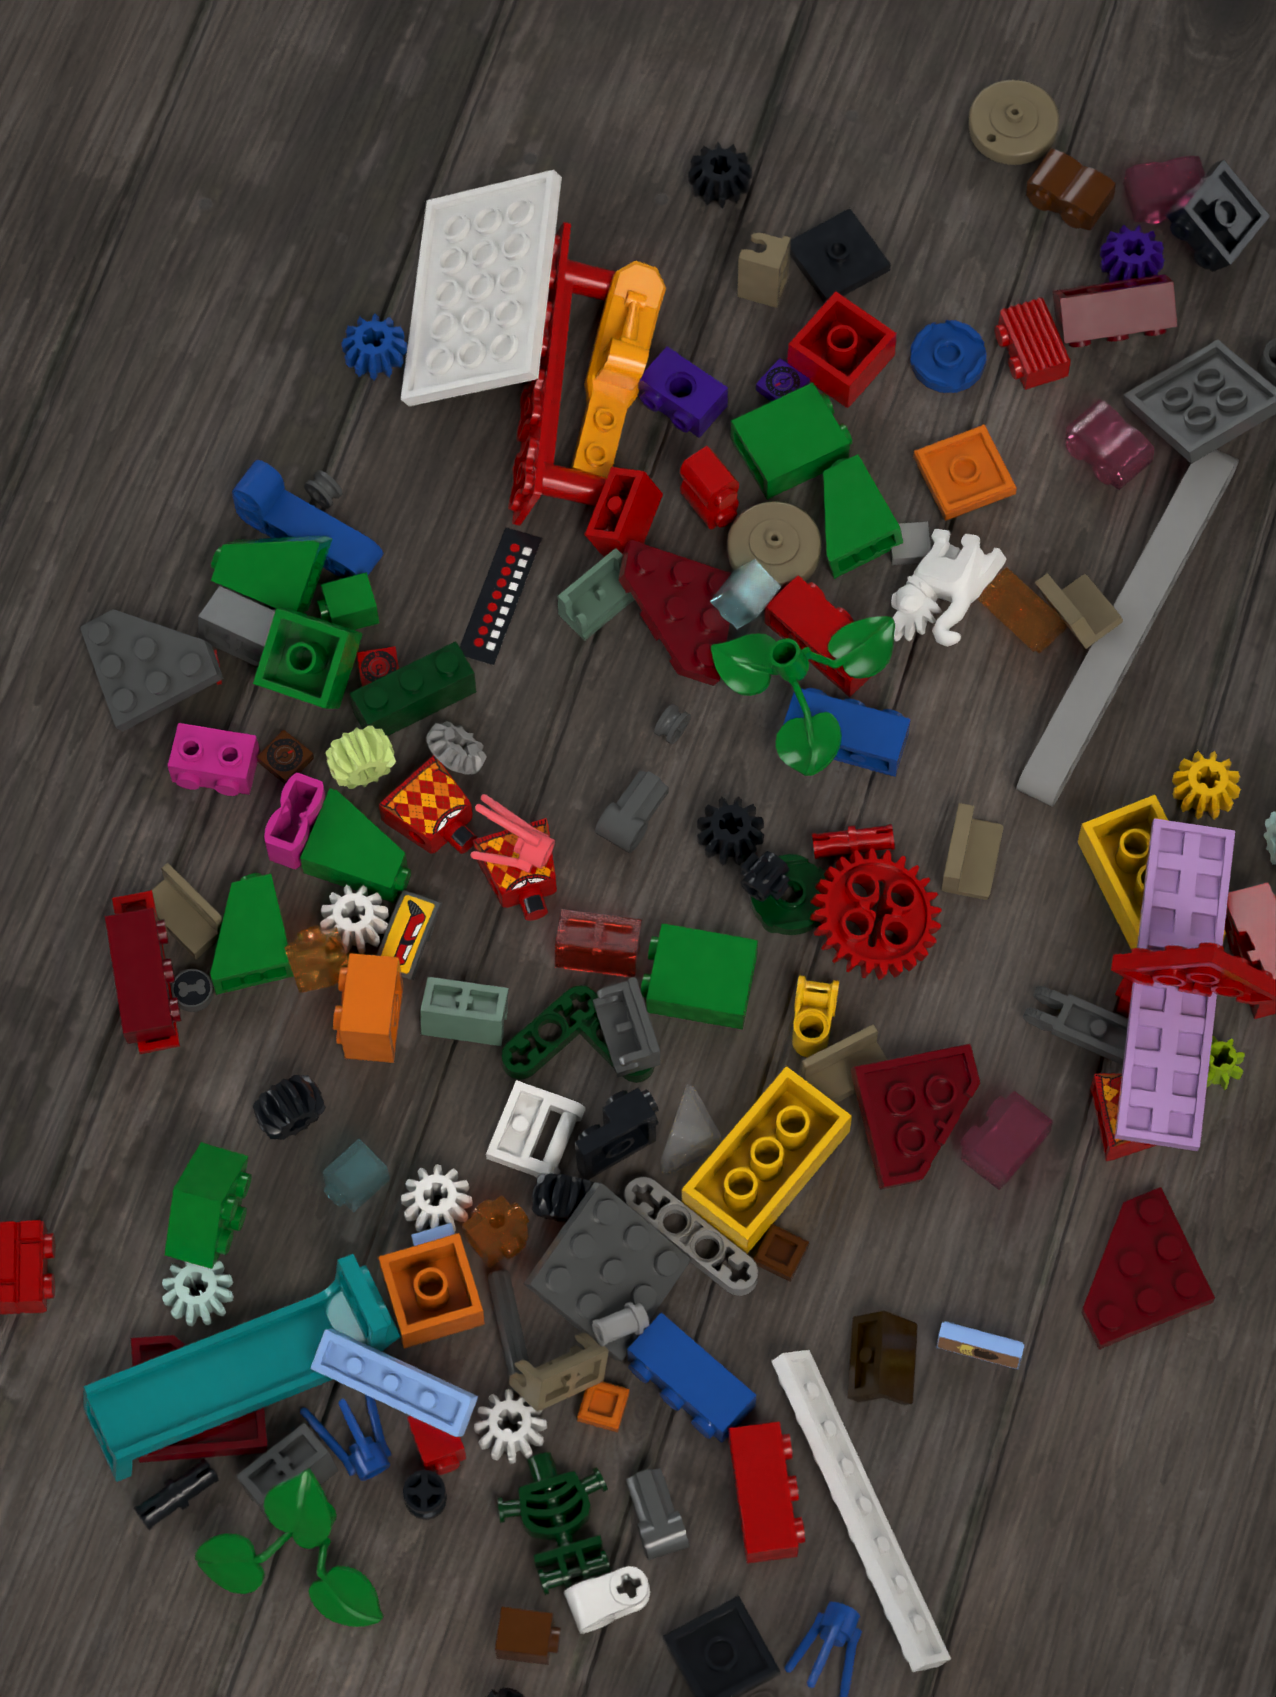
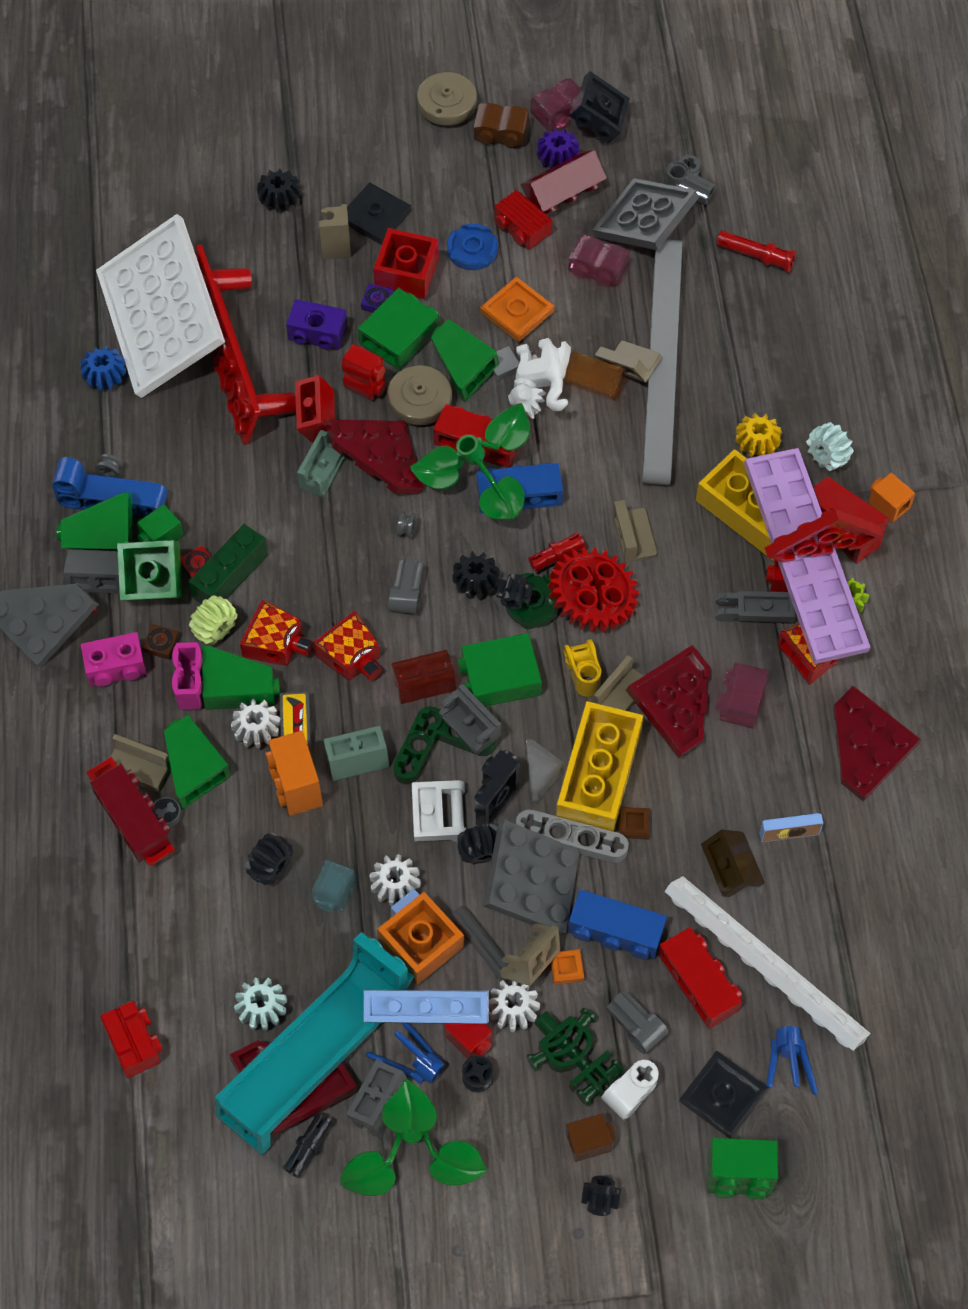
camera: 25 degrees left, 5 degrees down
(207, 1205) = (246, 942): green brick -> none
(316, 958) = (244, 756): clear orange brick -> none
(456, 748) = (273, 591): light grey gear -> none
(496, 1230) = (445, 882): clear orange brick -> none
(499, 596) = (255, 489): black sticker -> none
(532, 844) = (355, 629): coral plant -> none
(617, 363) = (267, 321): light orange piece -> none
(621, 1323) = (563, 901): light grey pin -> none
(745, 594) = (417, 427): clear light blue brick -> none

